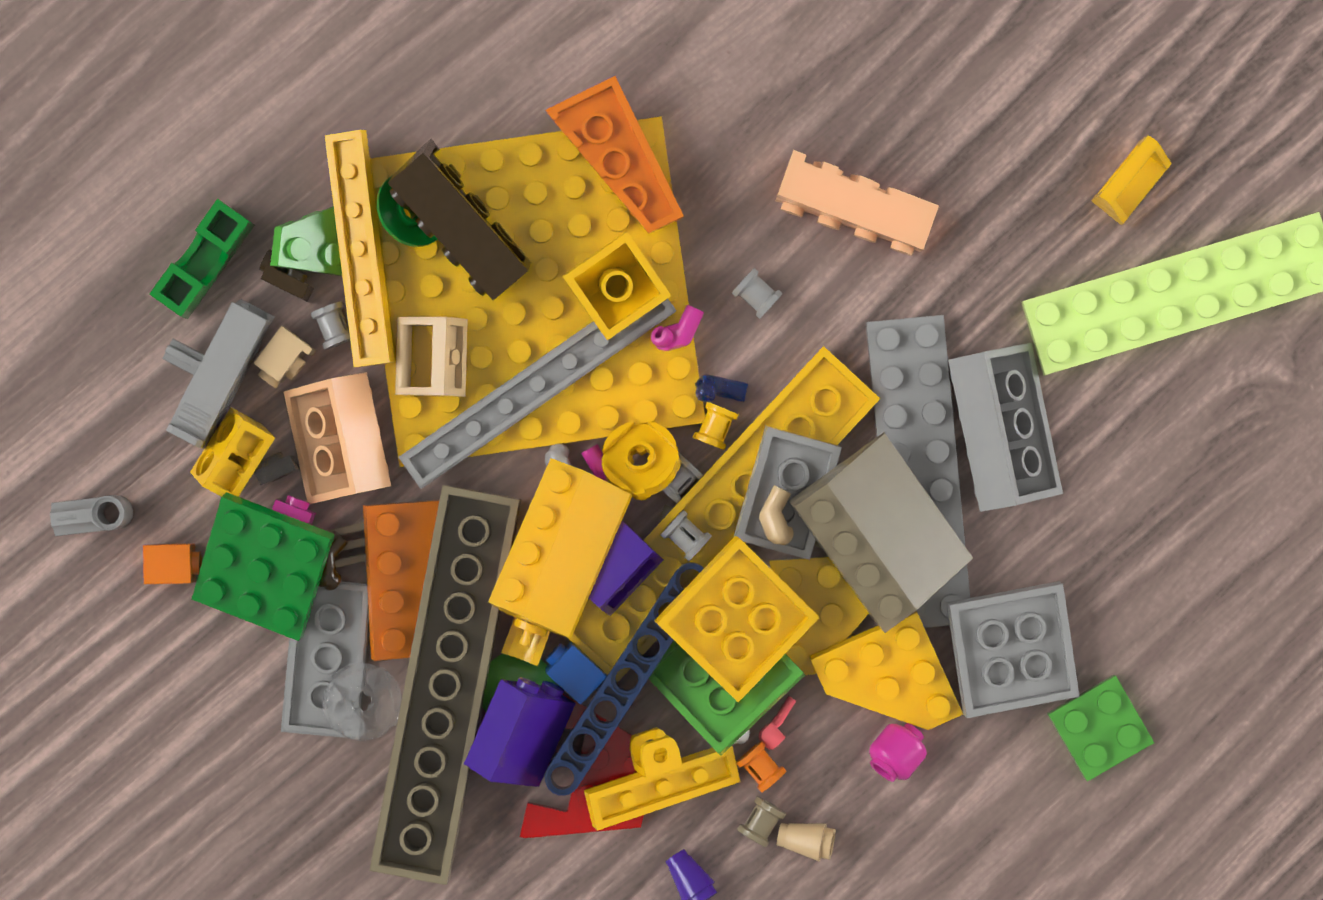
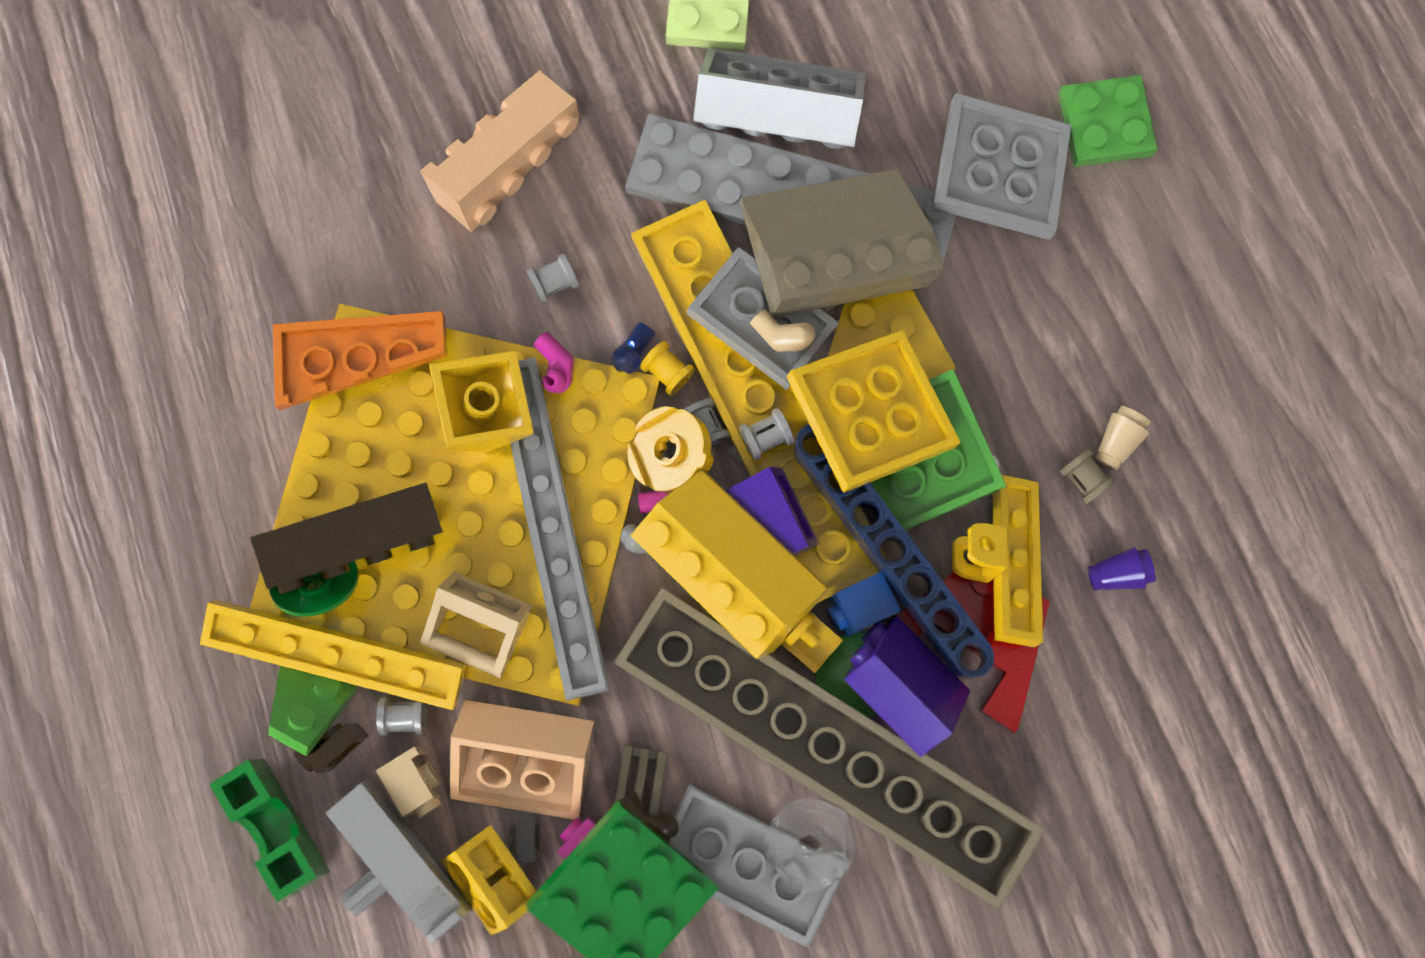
camera: 65 degrees left, 10 degrees down
(396, 565) = (683, 750): orange wing -> none
(761, 766) = (1030, 455): orange bush -> none
(770, 733) = (998, 435): coral hand -> none
(890, 674) = (983, 293): yellow plate -> none
(897, 752) = (1064, 315): dark pink head -> none

